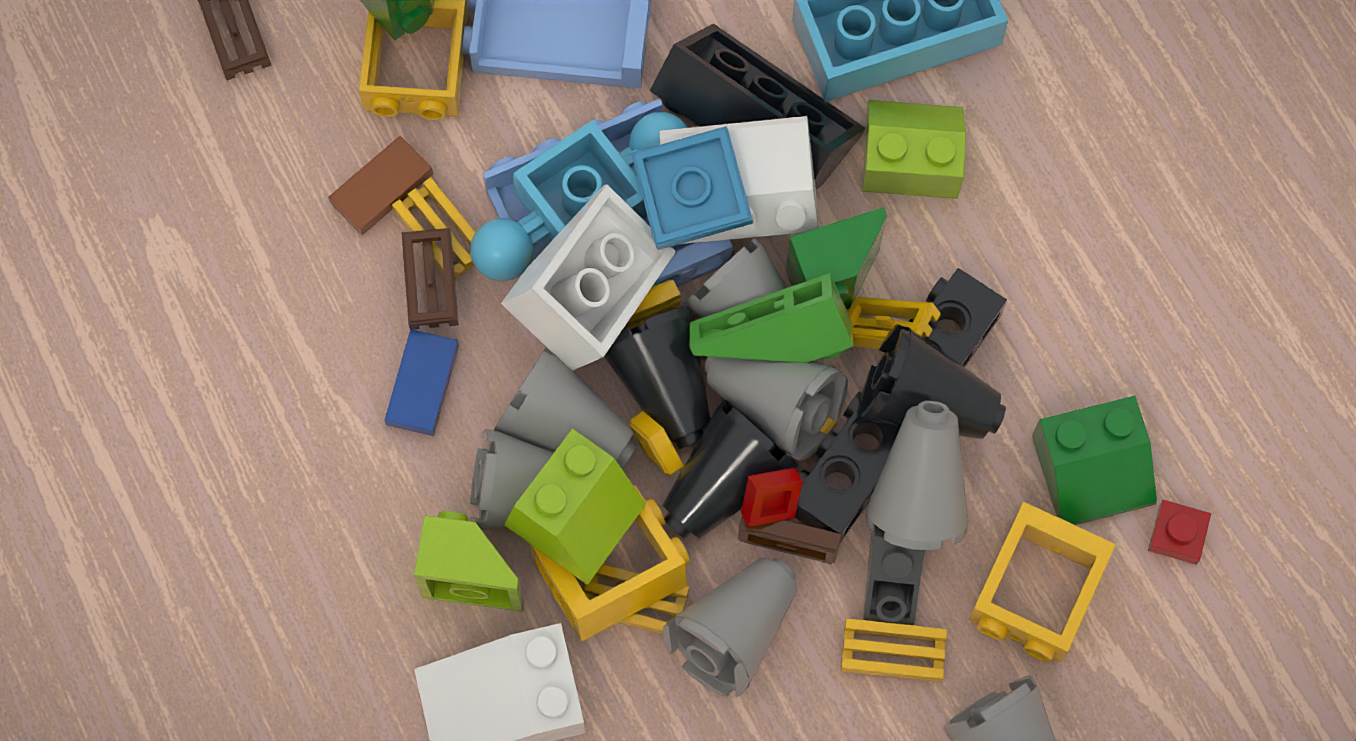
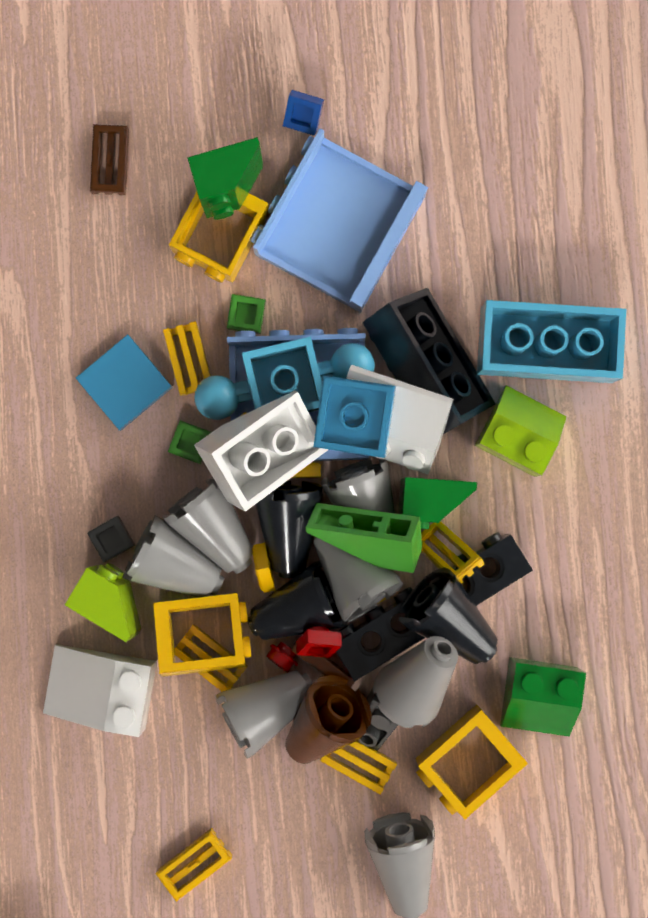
camera: 25 degrees right, 15 degrees up
(363, 293) = (124, 382): none -> dark azure tile
(379, 184) = (162, 311): dark orange tile -> none
(421, 382) = (134, 458): blue tile -> none
(431, 494) = (111, 539): none -> dark grey tile
(433, 316) = (178, 397): reddish brown tile -> none
(487, 333) = (184, 440): none -> bright green tile
(491, 142) = (246, 313): none -> bright green tile
(577, 507) = (187, 602): lime slope -> none
(730, 553) = (282, 656): none -> red plate
(824, 598) = (327, 720): none -> reddish brown cone
(1179, 532) = (574, 762): red plate -> none

